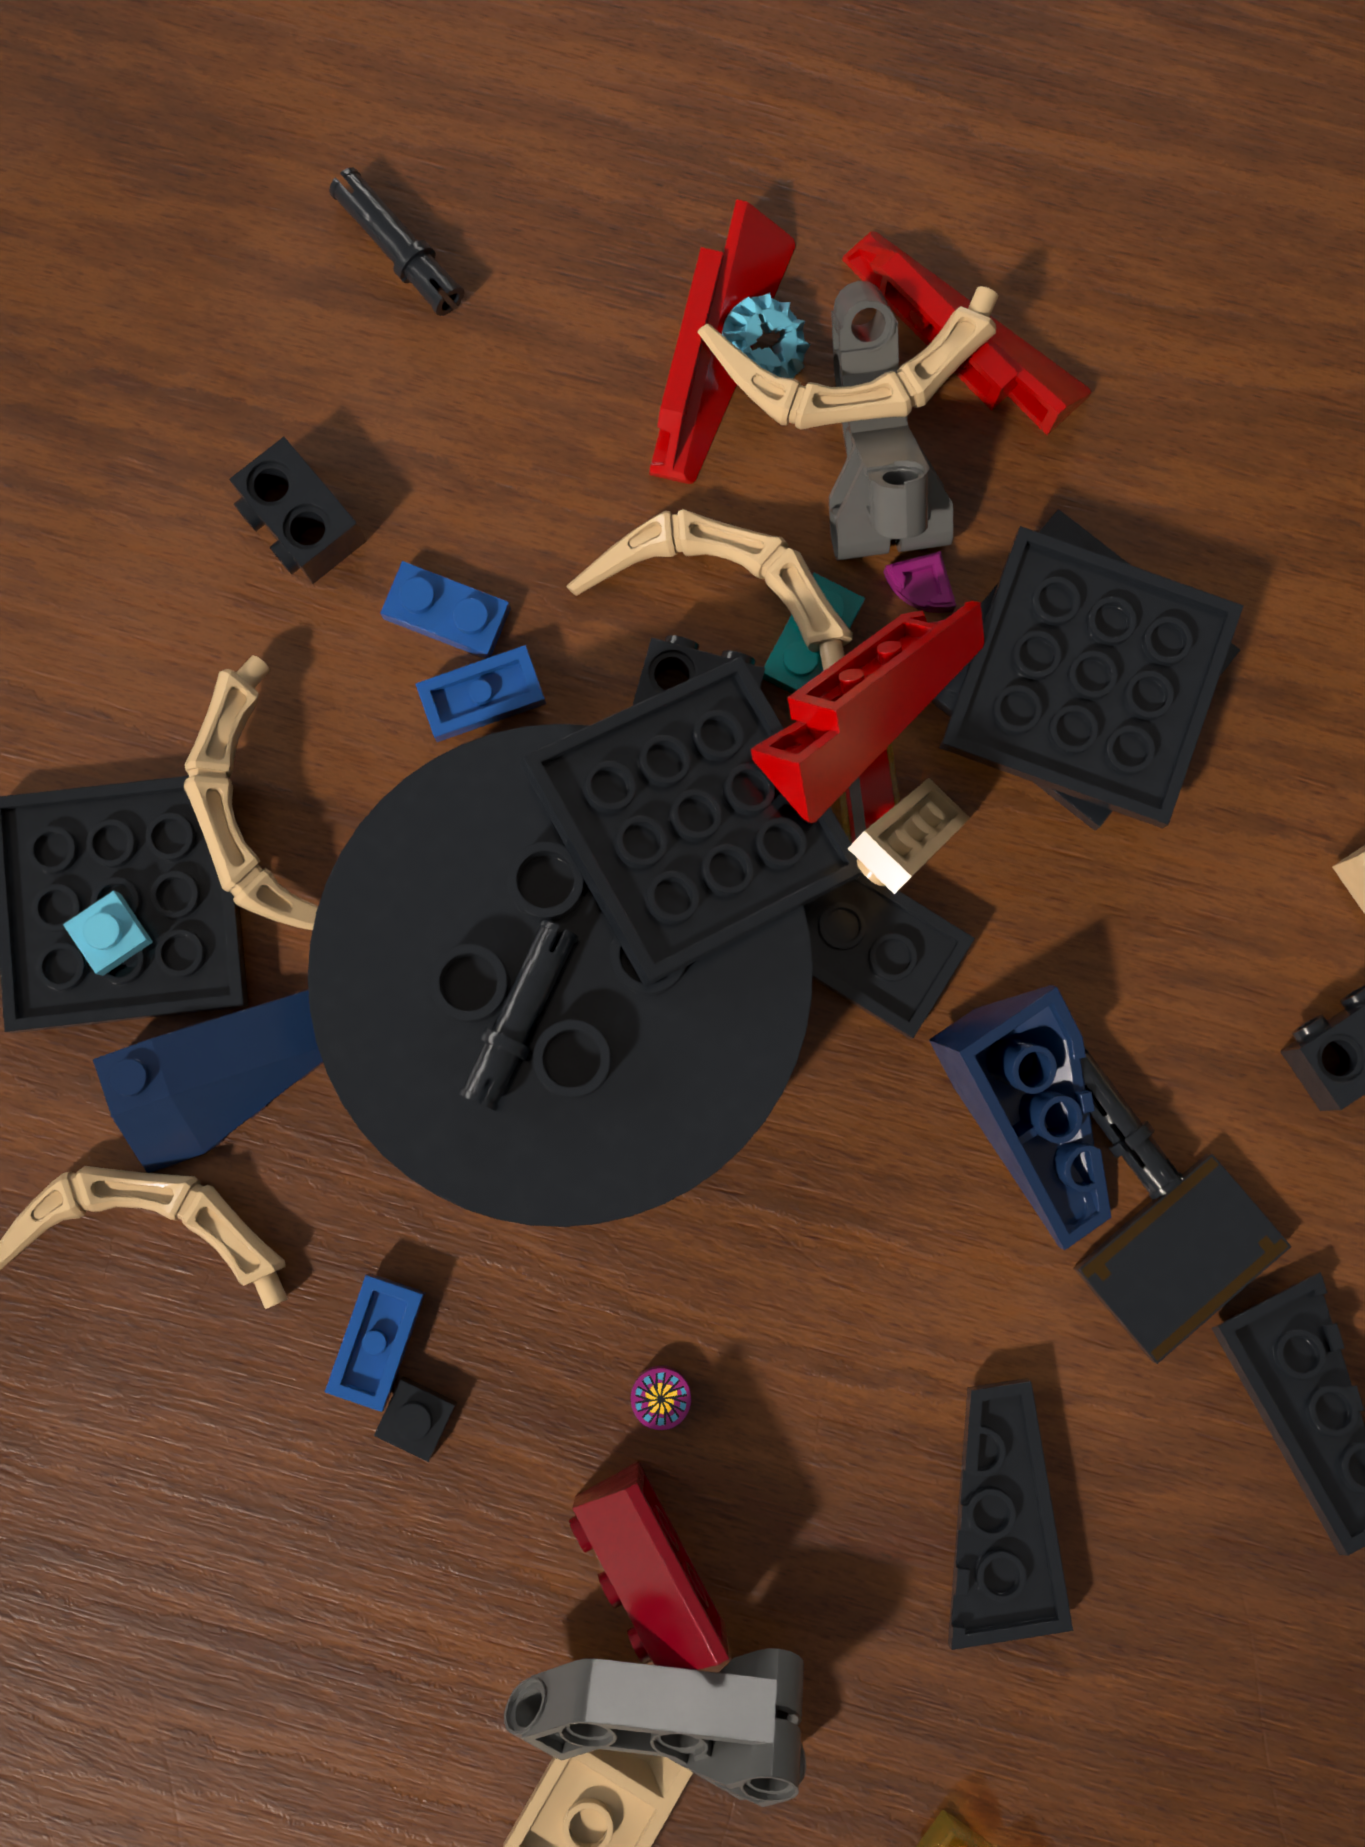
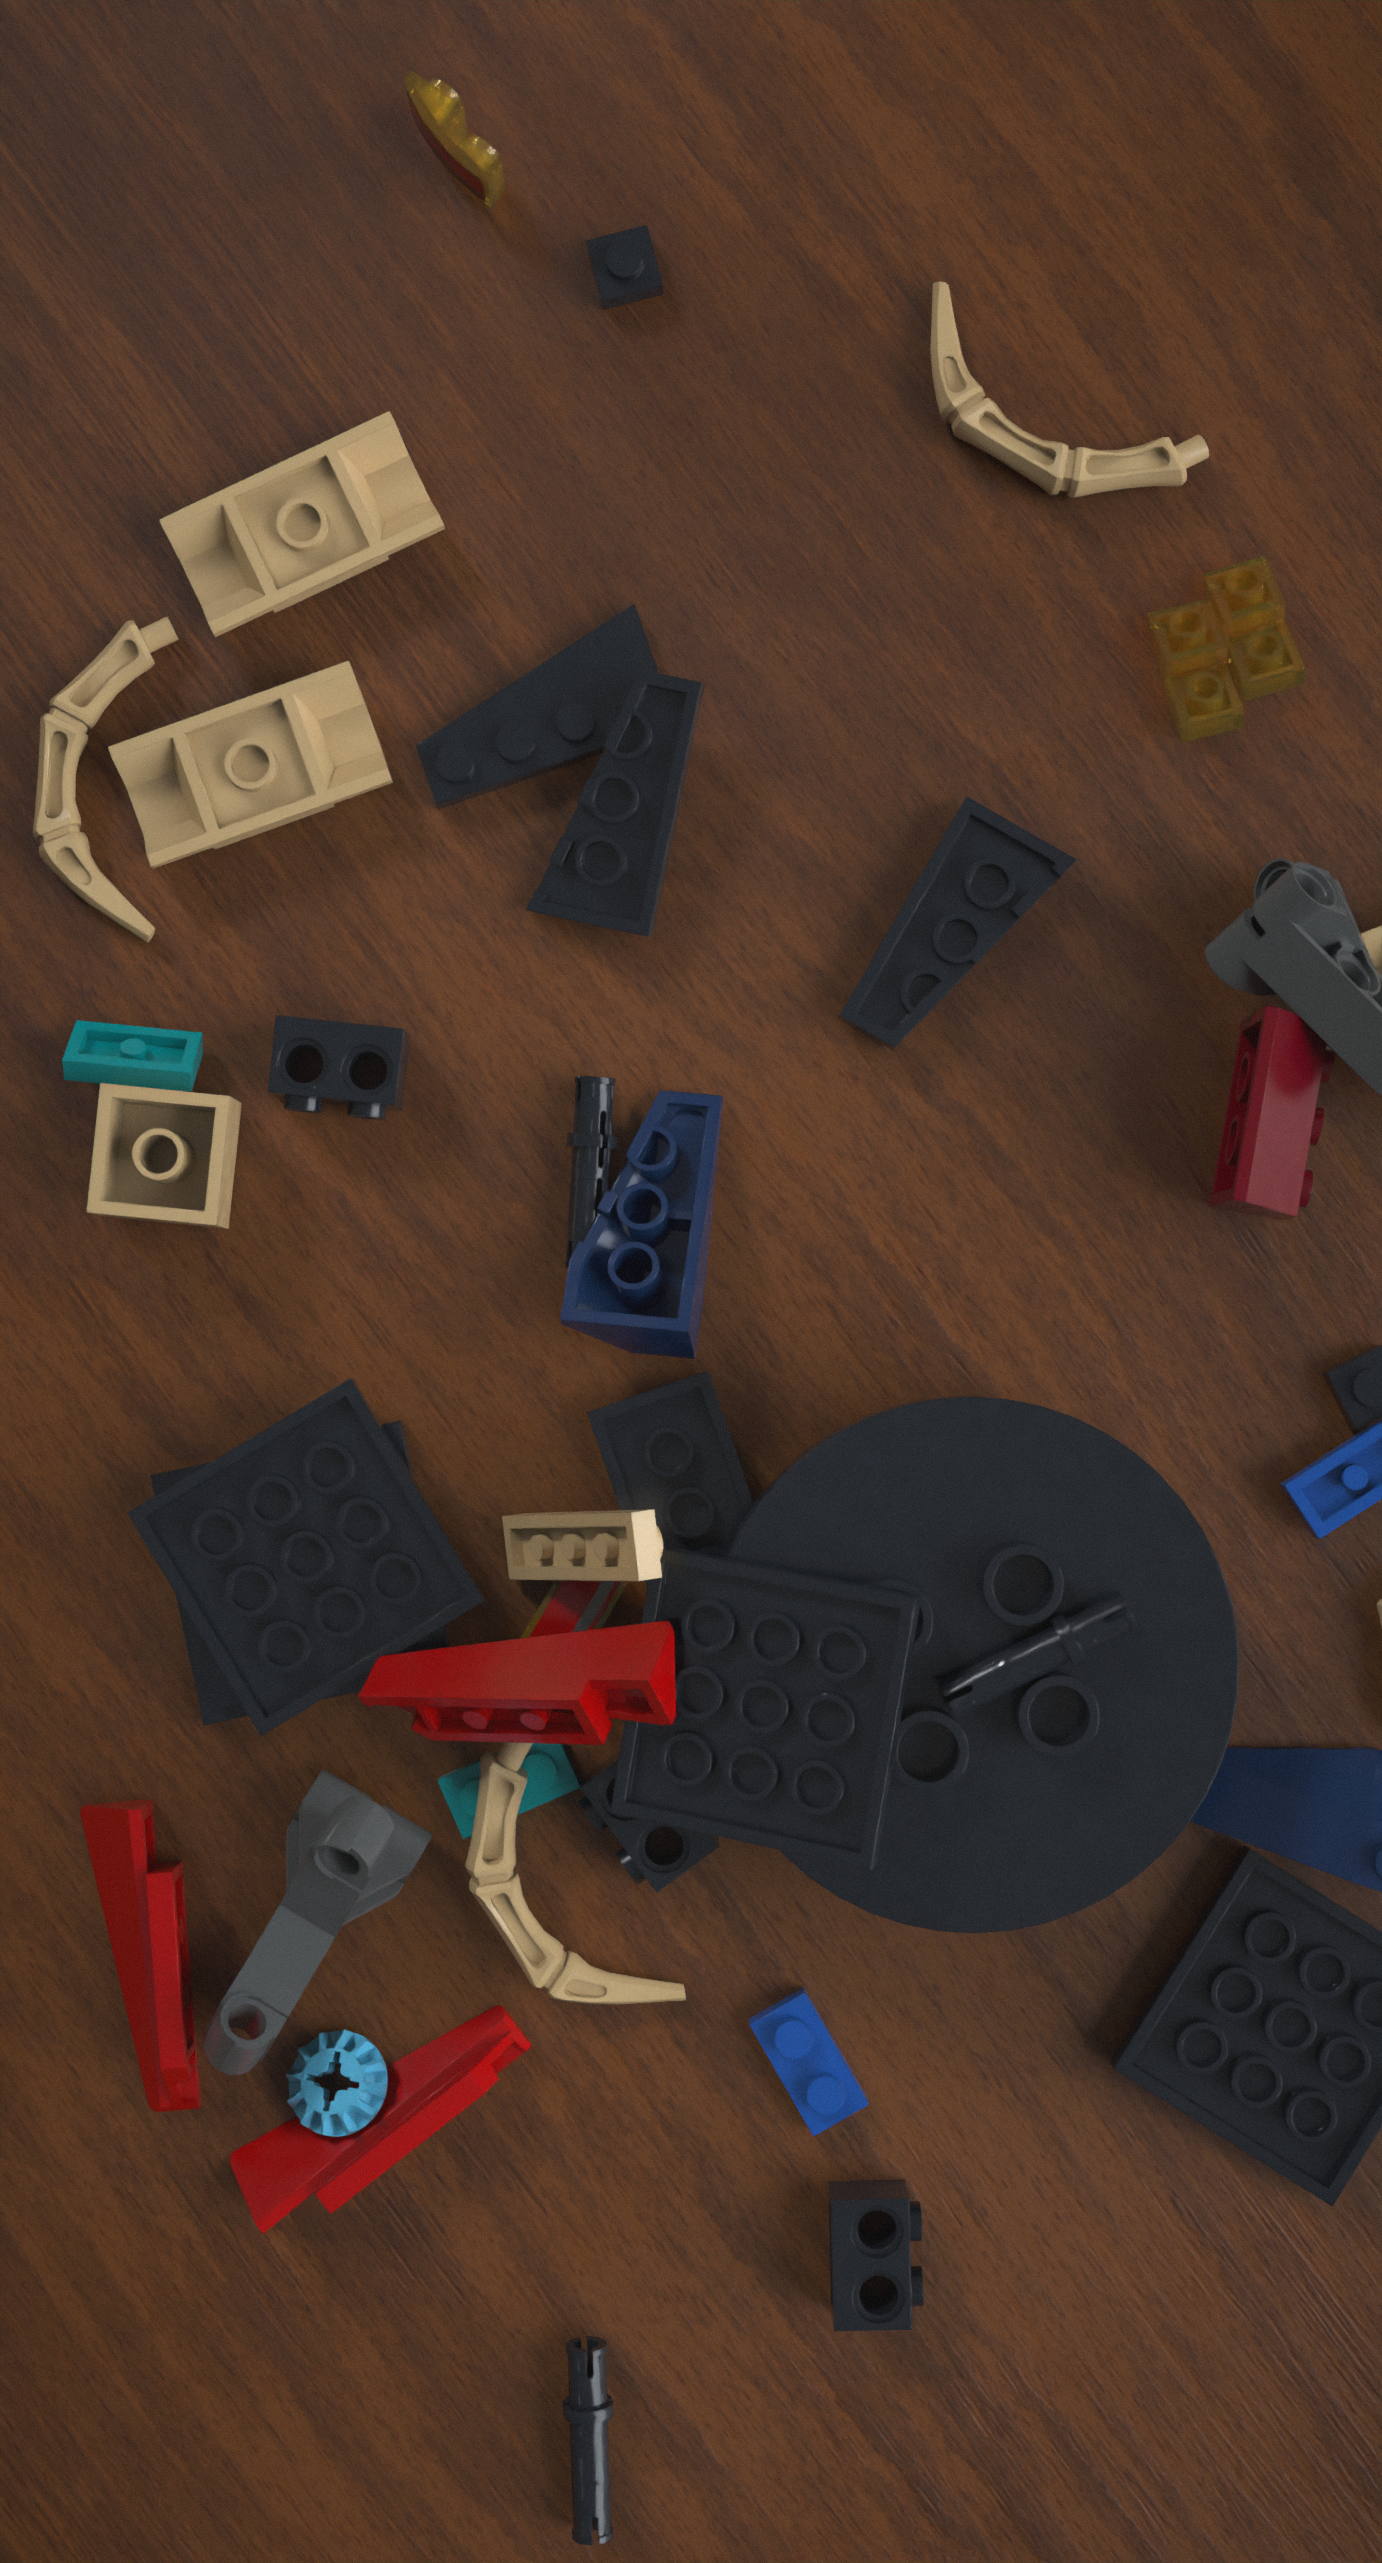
camera: 145 degrees left, 5 degrees up
(107, 933) = (1318, 2002): medium azure plate -> none
(211, 798) = (1141, 2053): tan animal -> none
(480, 693) = (837, 1961): blue plate -> none
(660, 1397) = (1151, 1243): tile -> none
(883, 397) = (286, 1946): tan animal -> none
(922, 583) = (374, 1754): magenta tile -> none
(1182, 1258) = (628, 1011): black tile -> none

